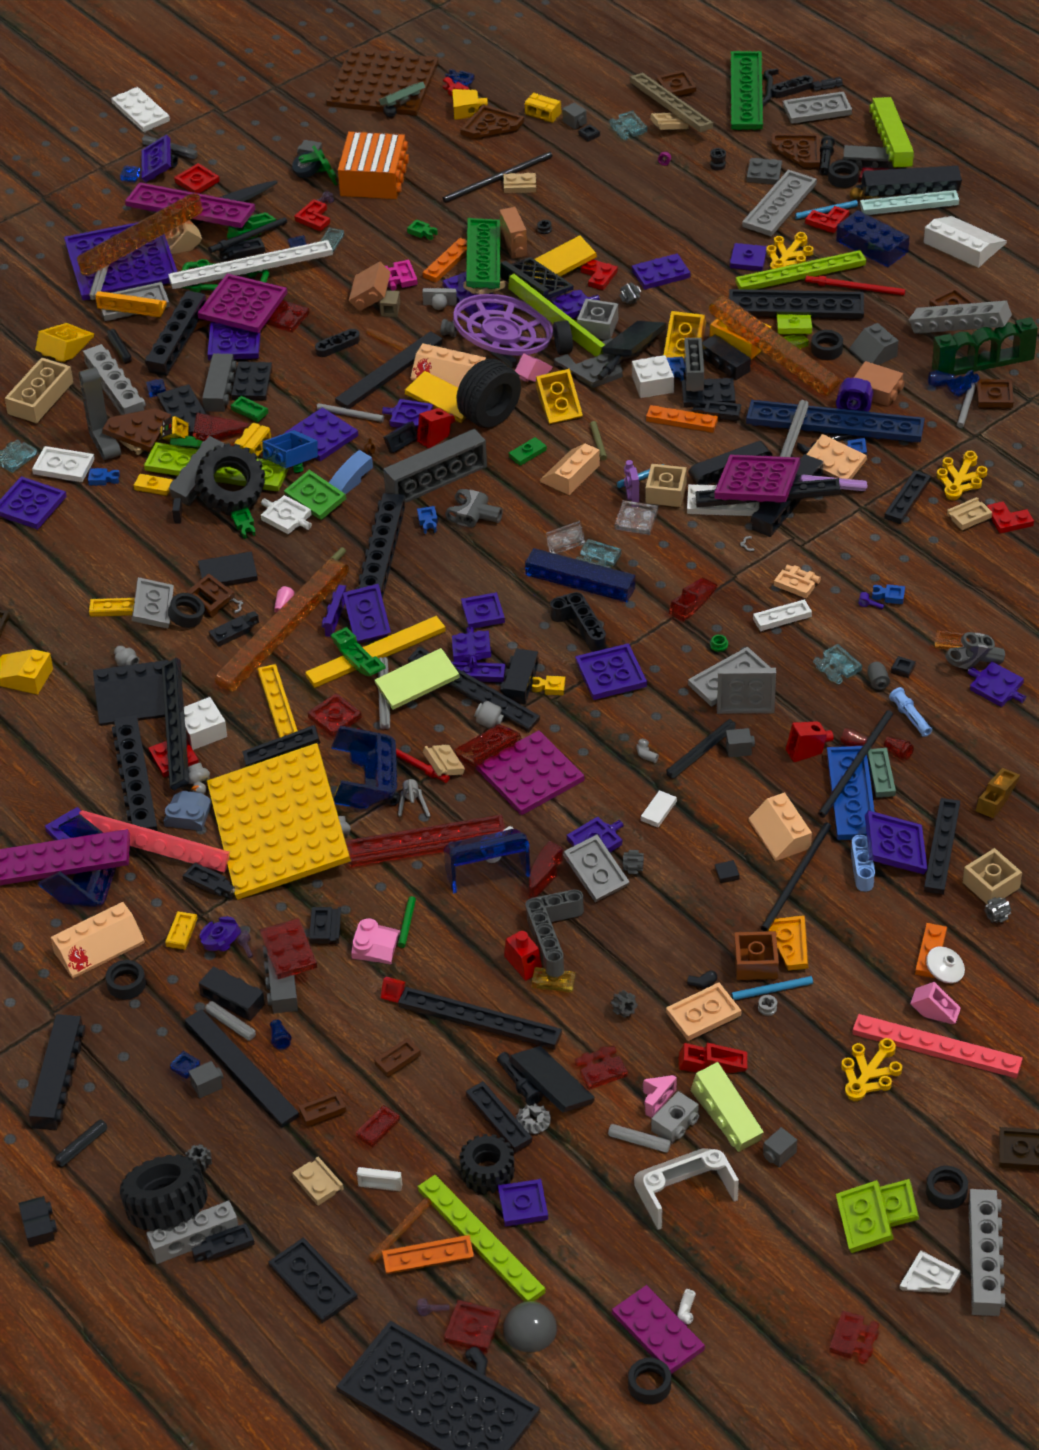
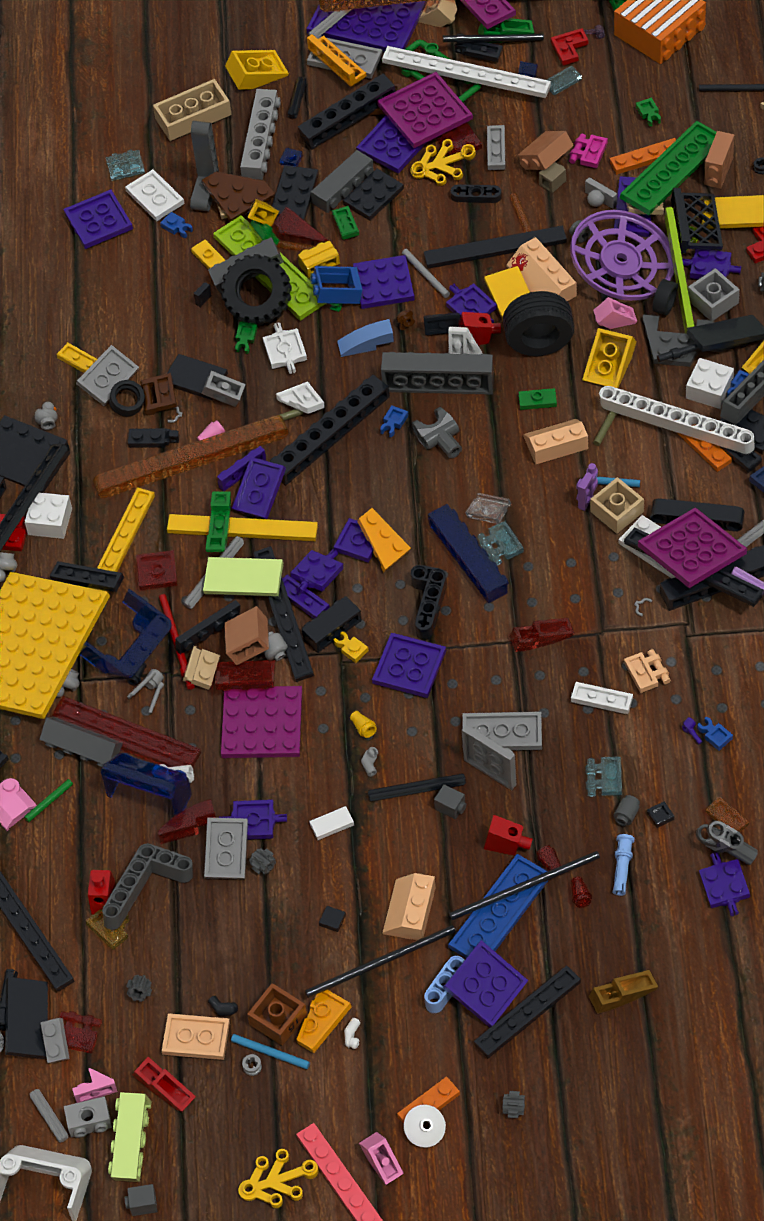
camera: 40 degrees right, 10 degrees up
(267, 561) = (223, 388): none -> light grey brick
(290, 334) = (441, 163): none -> yellow plant
(315, 494) = (323, 342): bright green plate -> none
(323, 305) = (496, 147): none -> light grey plate
(337, 538) = (302, 398): none -> white wing
(396, 861) = (79, 740): none -> dark grey brick
(421, 731) = (207, 627): none -> black plate
(433, 435) = (462, 341): none -> white wing
(464, 714) = (246, 635): none -> nougat brick
(510, 599) = (384, 540): none -> light orange wing
(592, 1079) = (55, 1040): none -> light grey plate
(616, 729) = (364, 725): none -> yellow cone
(636, 517) = (567, 522): clear plate -> none
(655, 408) = (686, 418): none -> white beam
(719, 643) = (523, 688): green plate -> none
(822, 937) = (349, 1033): none -> white arm
(881, 772) = (542, 907): sand green plate -> none
(992, 876) = (535, 1070): tan brick -> none

